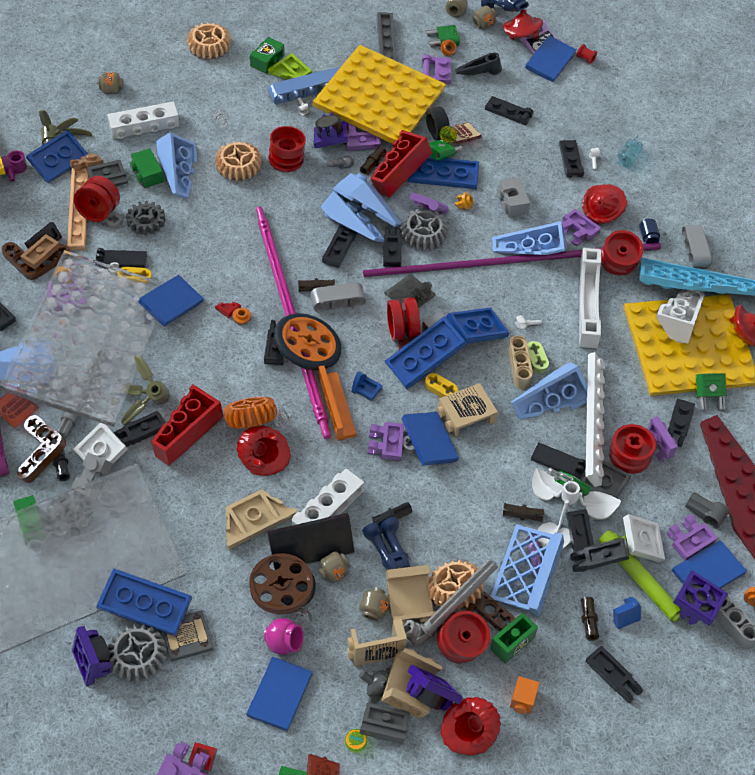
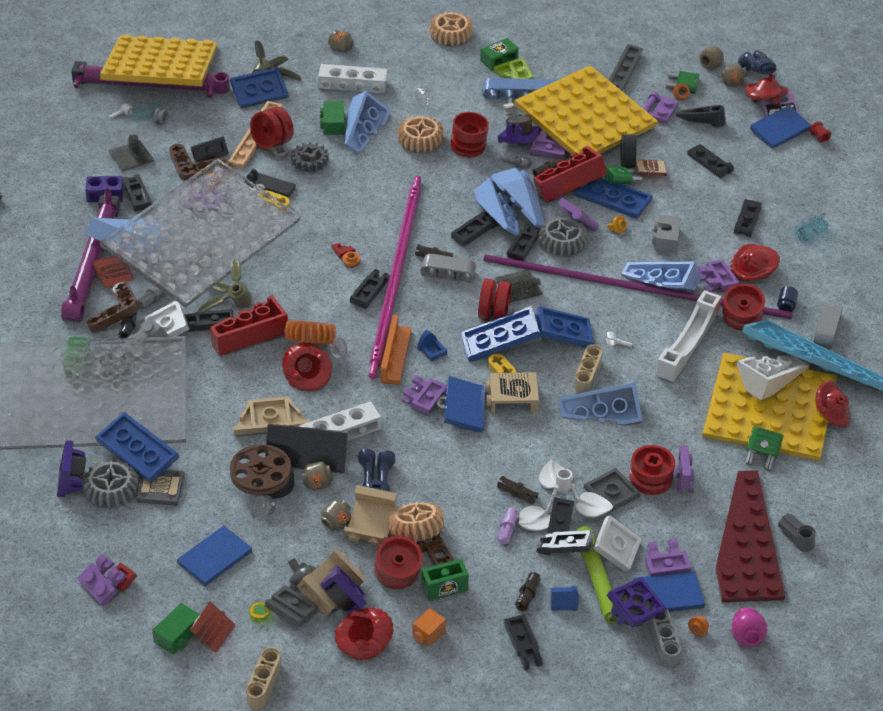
camera: 25 degrees right, 10 degrees down
(40, 251) = (200, 157): medium nougat plate -> none
(87, 161) = (284, 99): medium nougat plate -> none
(112, 170) = (300, 113): dark grey plate -> none
(171, 300) = (293, 227): blue tile -> none
(284, 636) = (241, 511): dark pink piece -> none
(293, 352) = (391, 289): wedge -> none
(379, 649) = (315, 546): tan panel -> none
(399, 512) = (400, 452): black axle -> none
(412, 630) = (355, 543): light grey bush -> none
(448, 134) = (632, 162): clear neon green tile -> none
(455, 601) = (370, 548): light grey axle -> none
(541, 356) = (604, 371): yellowish green beam -> none
(545, 573) = (503, 540): light blue fence -> none
(558, 460) = (577, 460): black hinge -> none
(562, 477) = (580, 482): piece -> none
(594, 153) = (774, 220): white hand -> none
(595, 422) = (630, 435): white plate -> none
(681, 419) = (718, 465): black hinge -> none
(710, 512) = (698, 545): dark grey piece -> none

